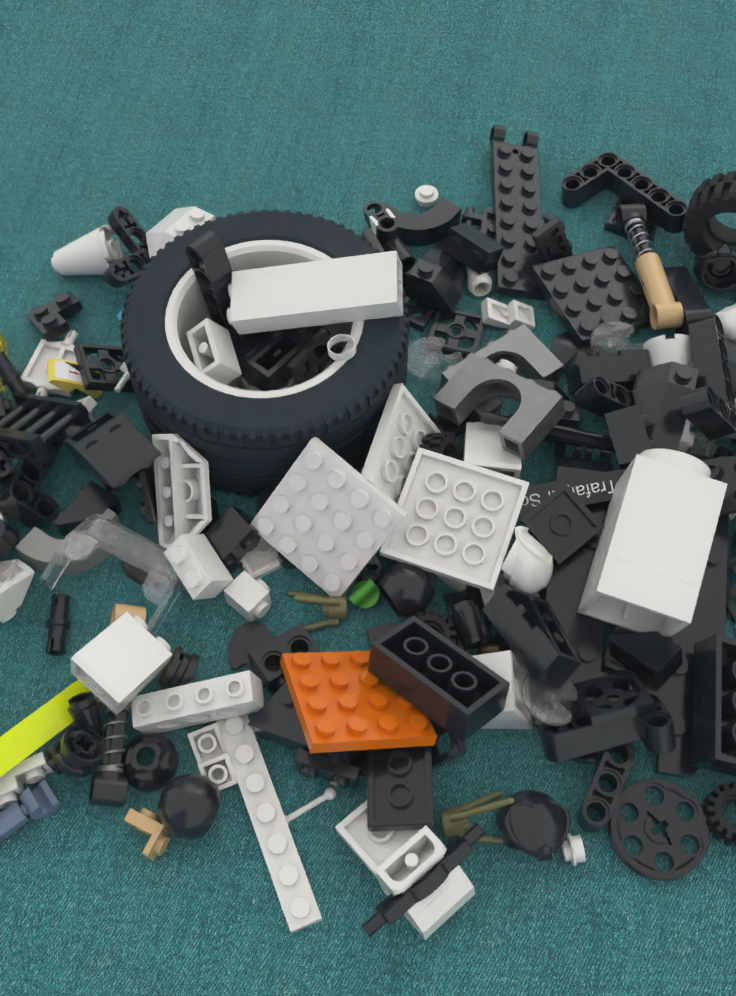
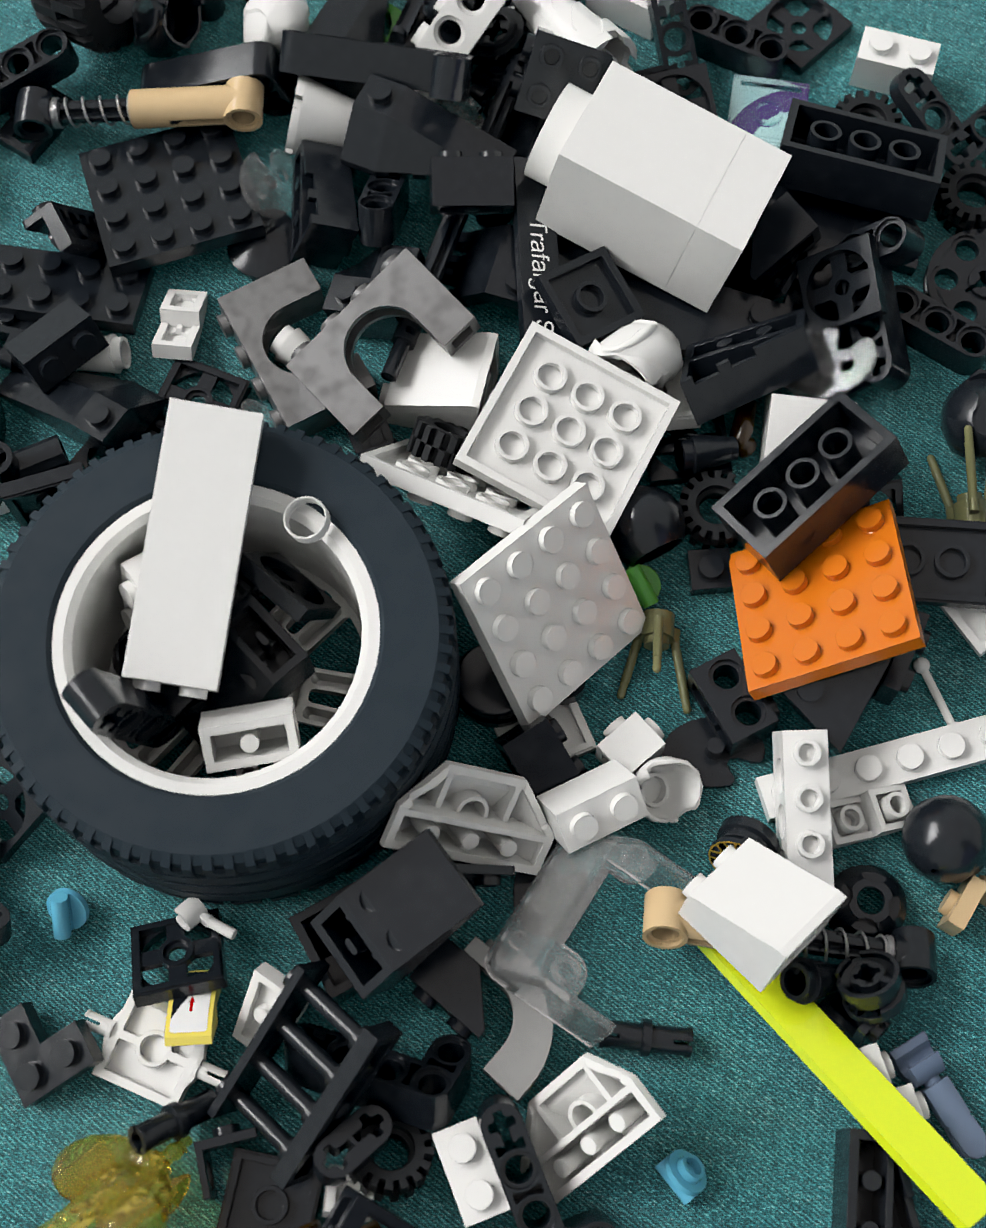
camera: 80 degrees left, 10 degrees up
(219, 618) = (669, 788): none -> white hair

